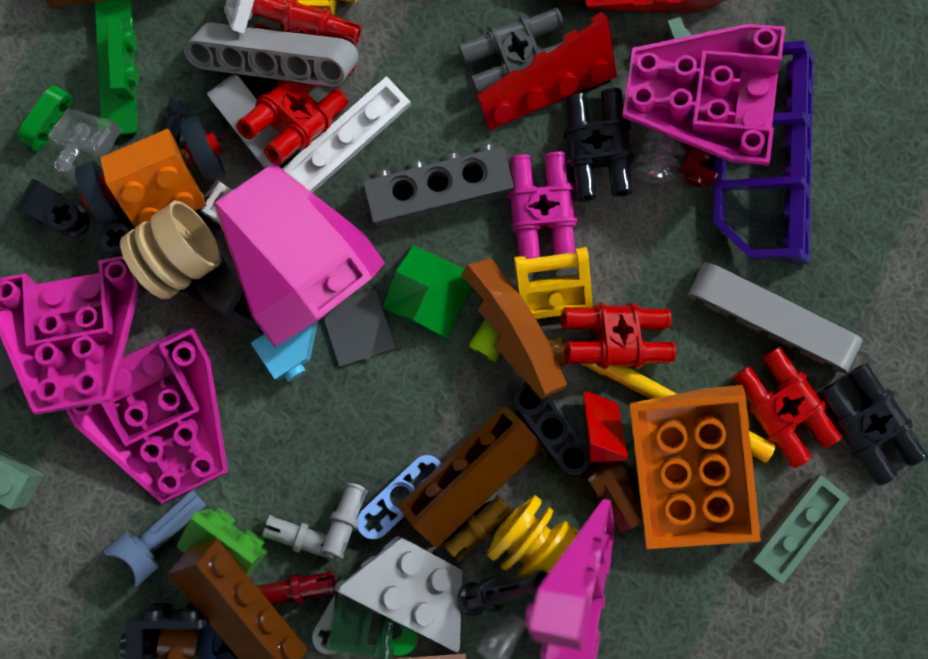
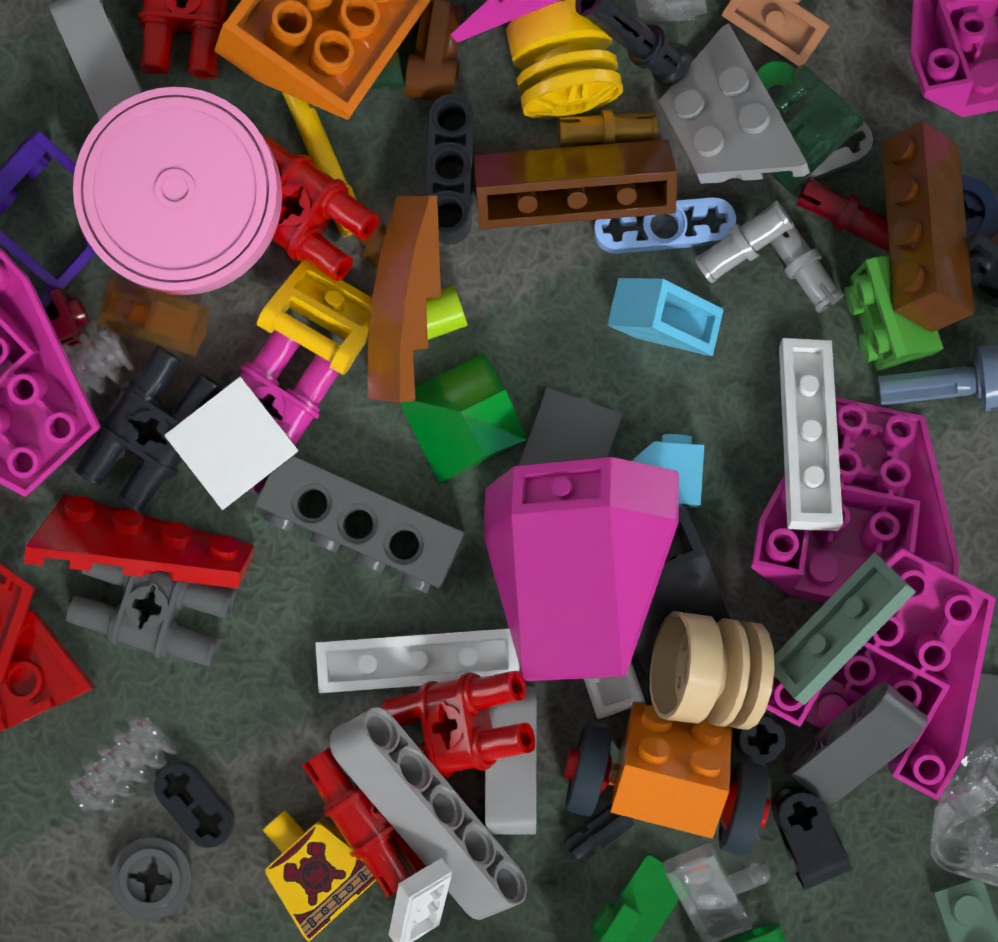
camera: 140 degrees left, 0 degrees up
(58, 276) = (857, 743): none -> dark grey beam
(110, 325) = (840, 628): none -> sand green plate
(217, 434) = (810, 435): none -> white plate
(357, 440) = (665, 315): none -> medium azure slope
(544, 169) = (231, 443): none -> white sticker
(603, 429) = (396, 123): red slope -> none
(648, 208) = (154, 317): none -> clear orange slope
(692, 283) = (177, 191): none -> bright pink brick

